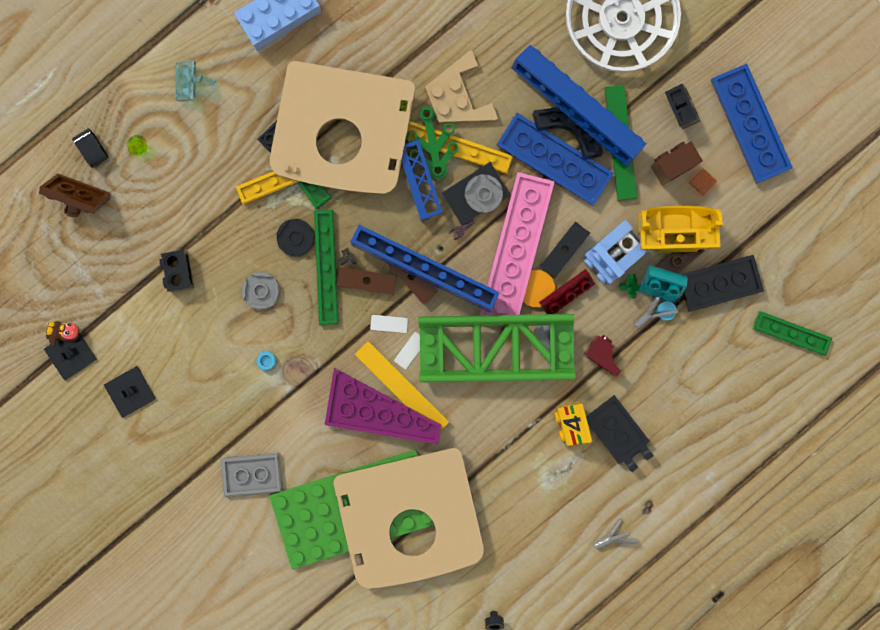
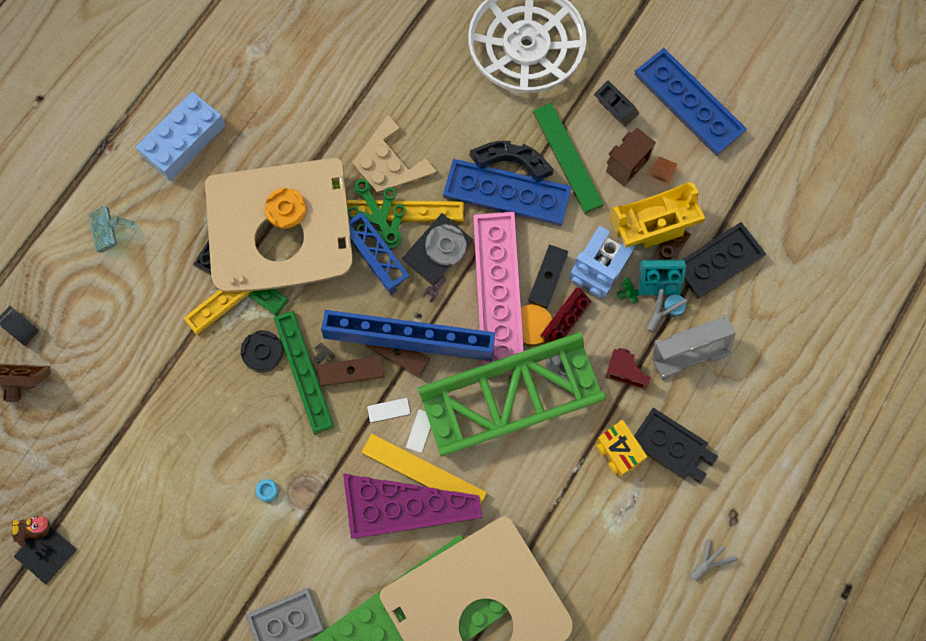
camera: 15 degrees left, 15 degrees down
(129, 391) = (122, 573): black piece -> none
(137, 145) = (66, 307): clear neon green tile -> none
(182, 269) = (146, 421): black brick -> none
(260, 291) = (239, 418): light grey tile -> none
(351, 115) = (285, 208): none -> light orange tile
(578, 105) = (513, 132): blue brick -> none
(668, 355) = (692, 346): none -> light grey piece
(792, 333) = (811, 288): green tile -> none

